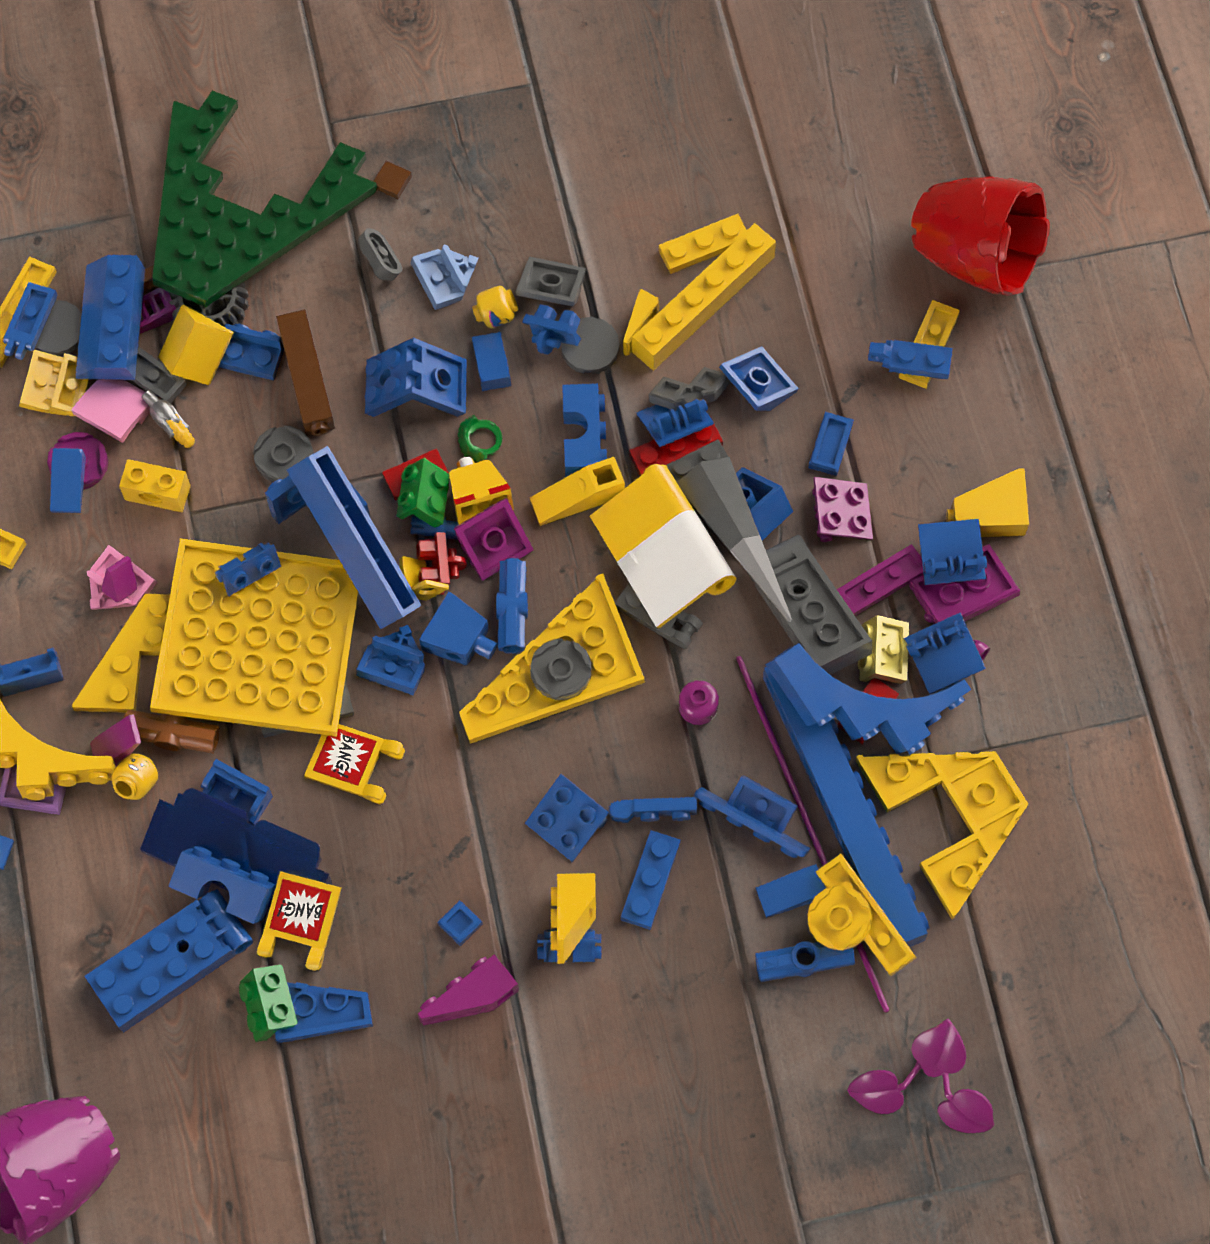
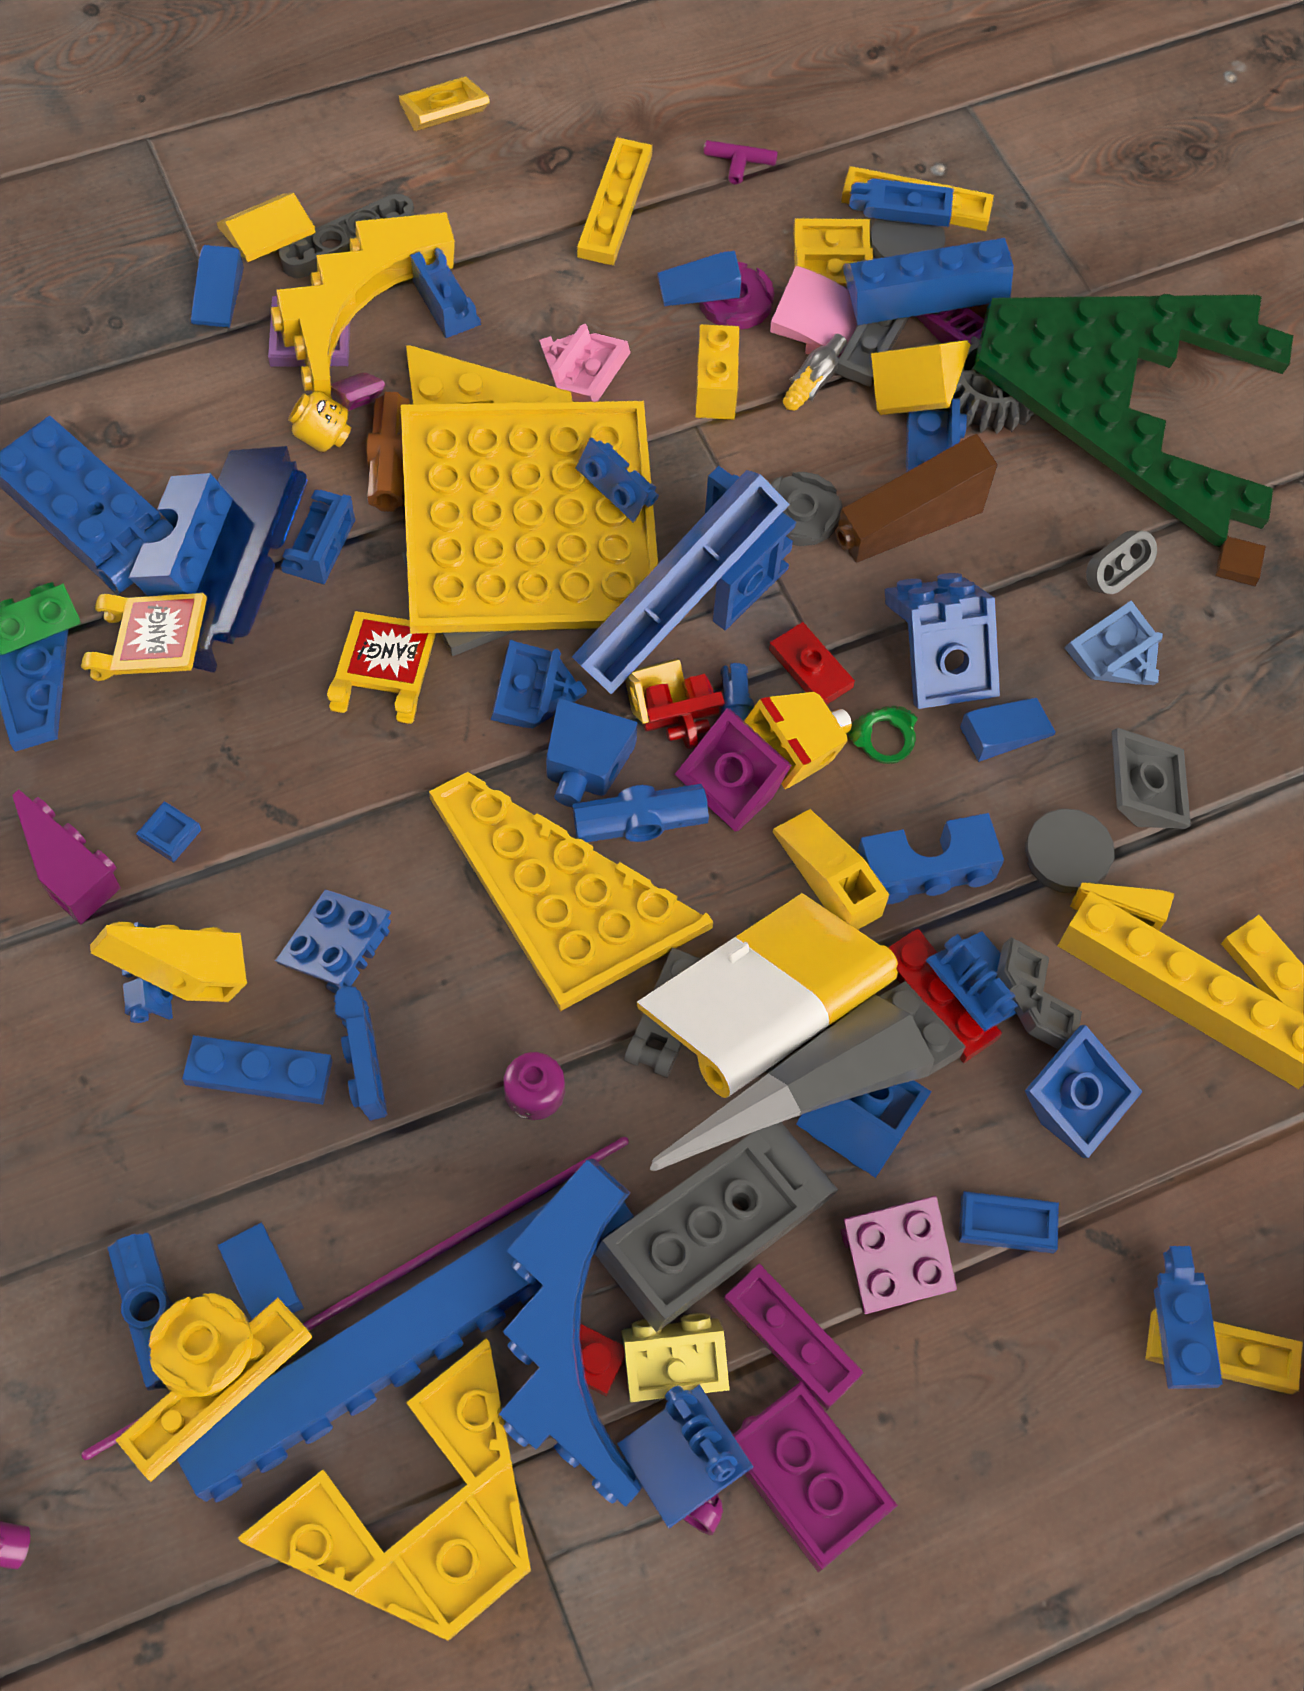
camera: 75 degrees right, 5 degrees down
(119, 580) = (575, 353): magenta slope -> none
(423, 492) = (775, 666): green bracket -> none
(495, 306) = (1088, 714): yellow head -> none
(551, 333) = (1078, 788): blue hips -> none
(560, 669) = (551, 888): dark grey tile -> none
(759, 810) = (373, 1203): blue bracket -> none
(952, 552) = (860, 1438): blue hinge -> none
(997, 504) = (959, 1500): yellow slope -> none

